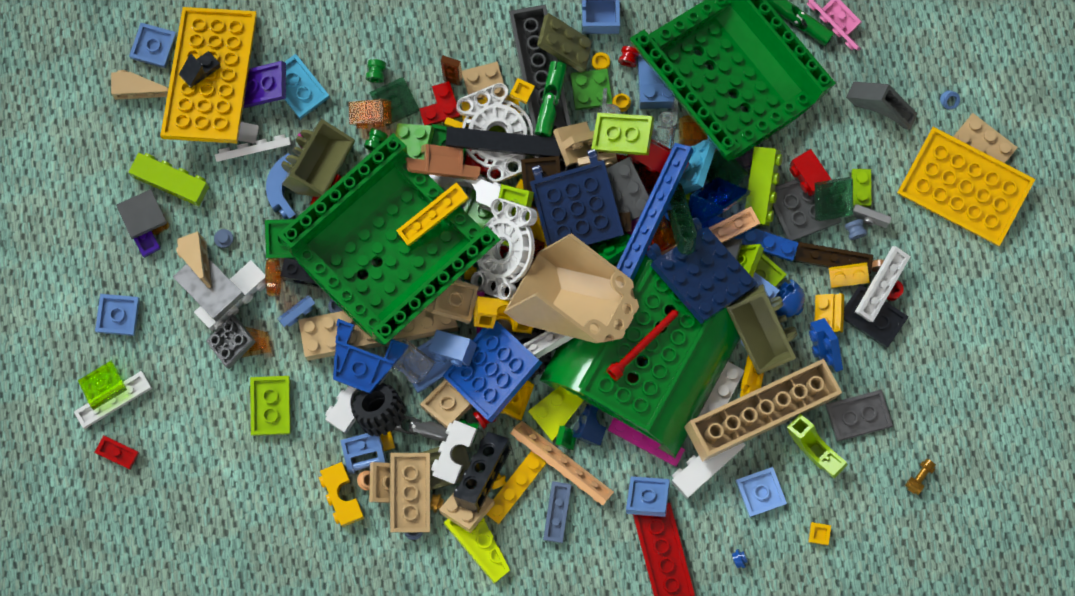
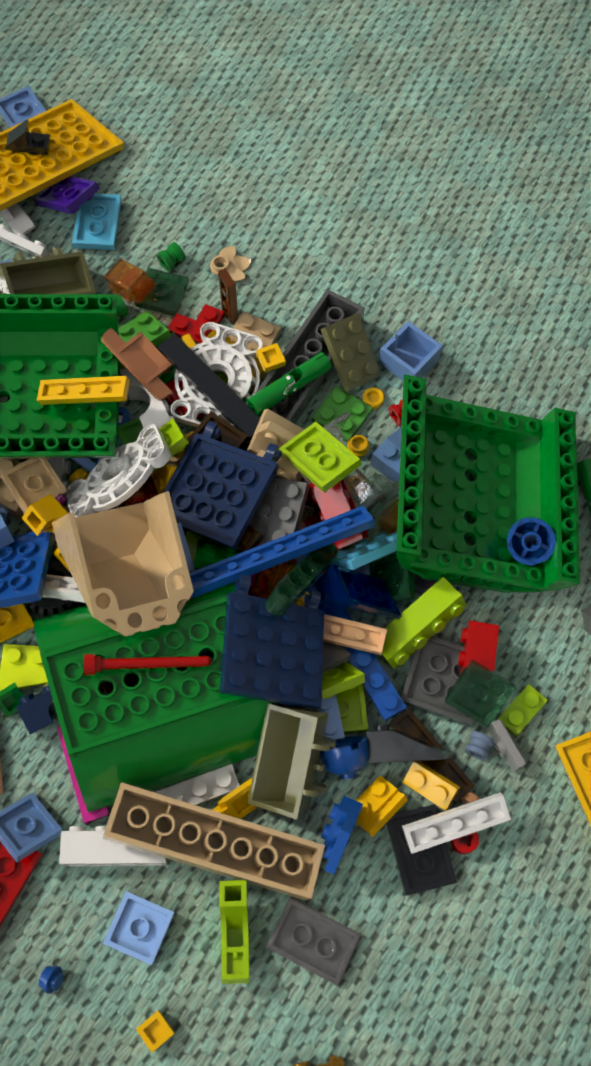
camera: 40 degrees right, 10 degrees down
(420, 41) = (233, 263): none -> tan plate
(784, 79) = (531, 540): none -> blue cylinder
(812, 270) = (396, 746): none -> black slope

